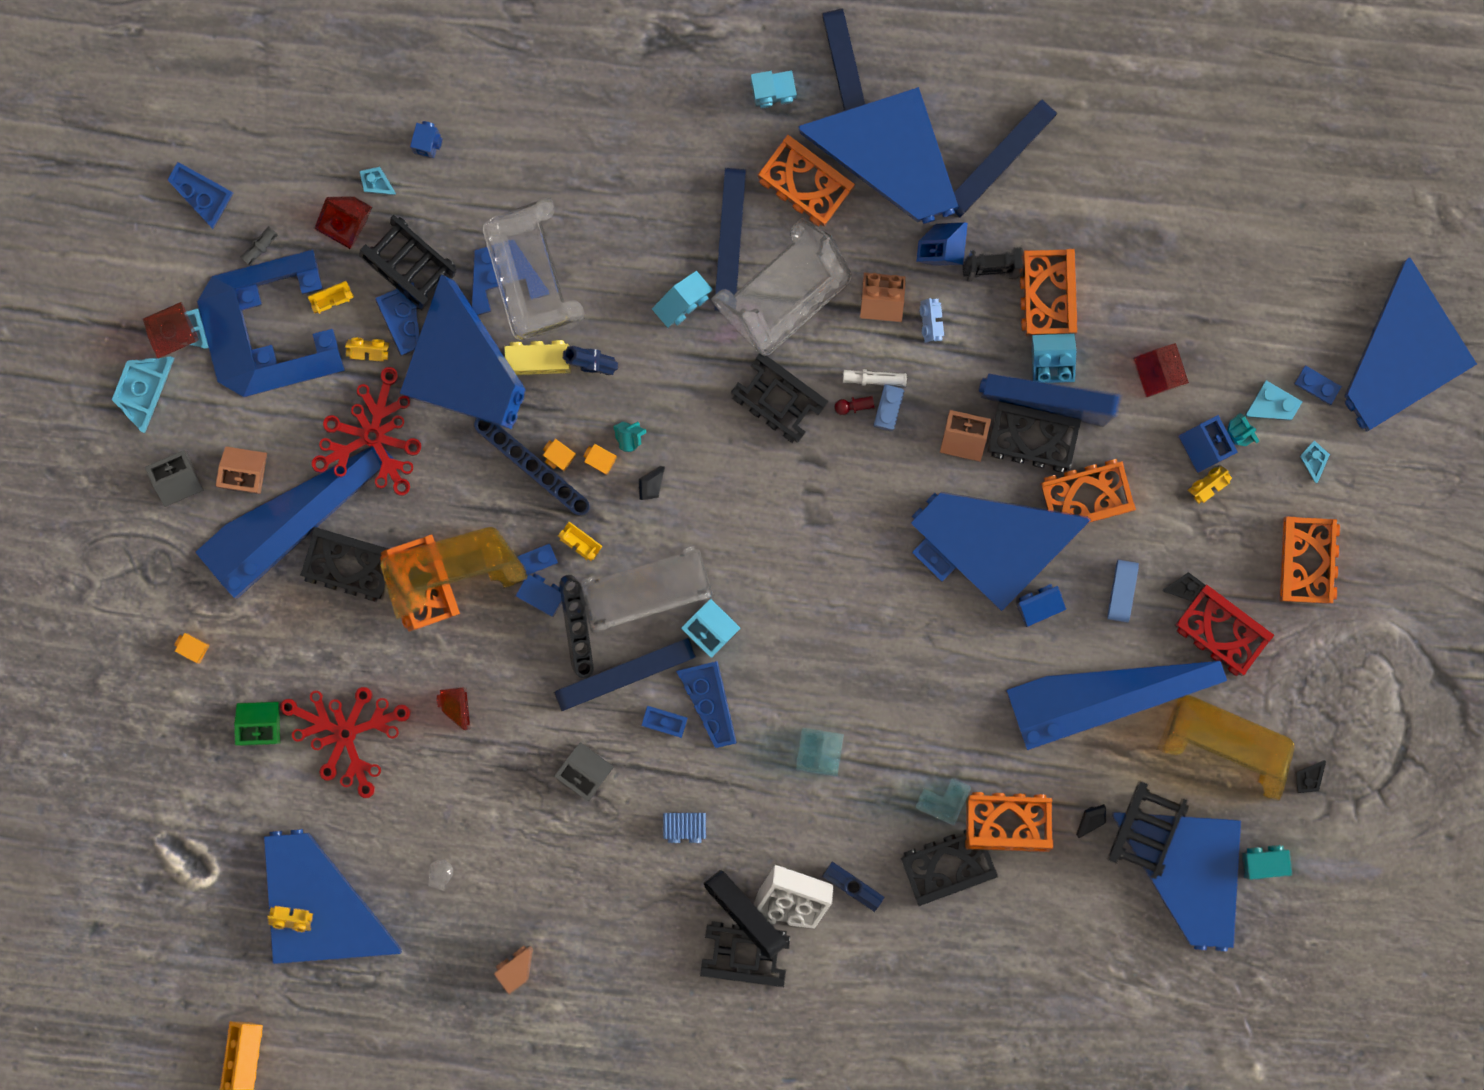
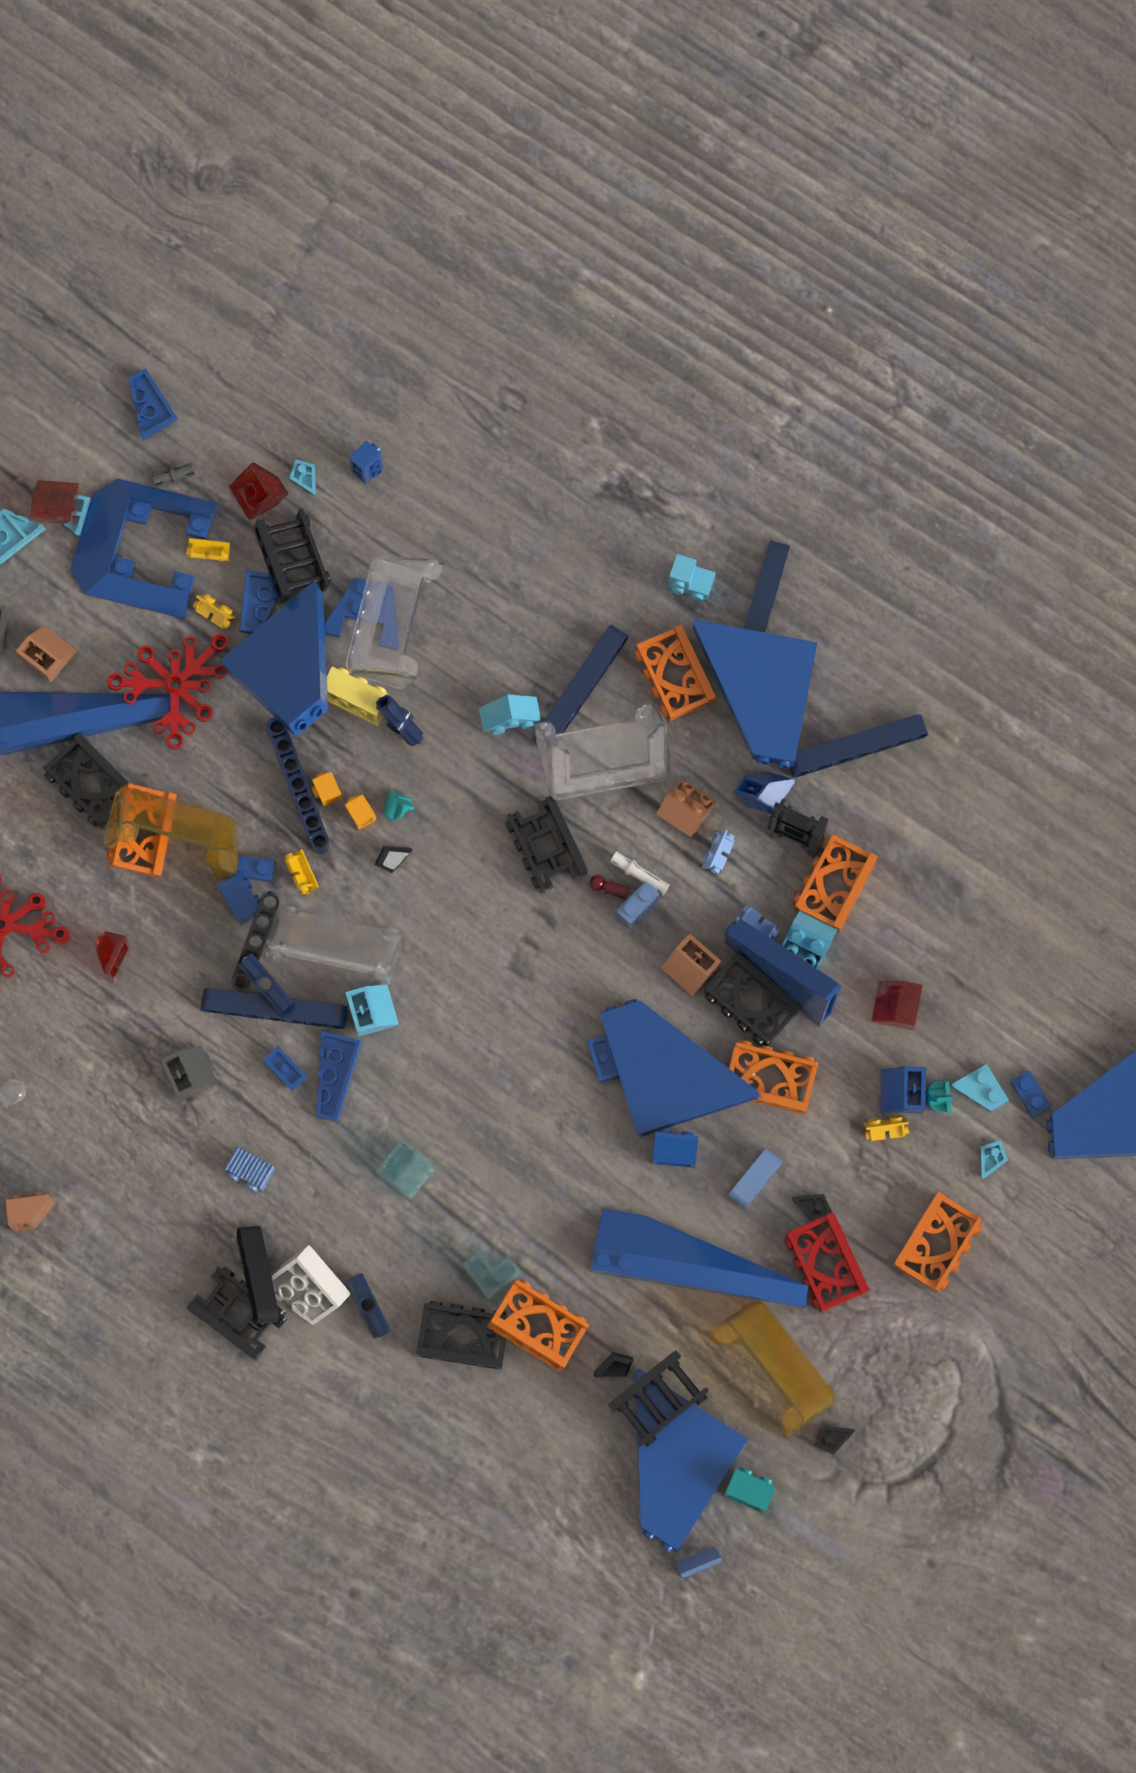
camera: 25 degrees right, 10 degrees down
(595, 654) = (275, 994): none -> dark blue piece
(993, 365) = (752, 917): none -> medium blue hinge
(1255, 946) = (698, 1562): none -> medium blue slope

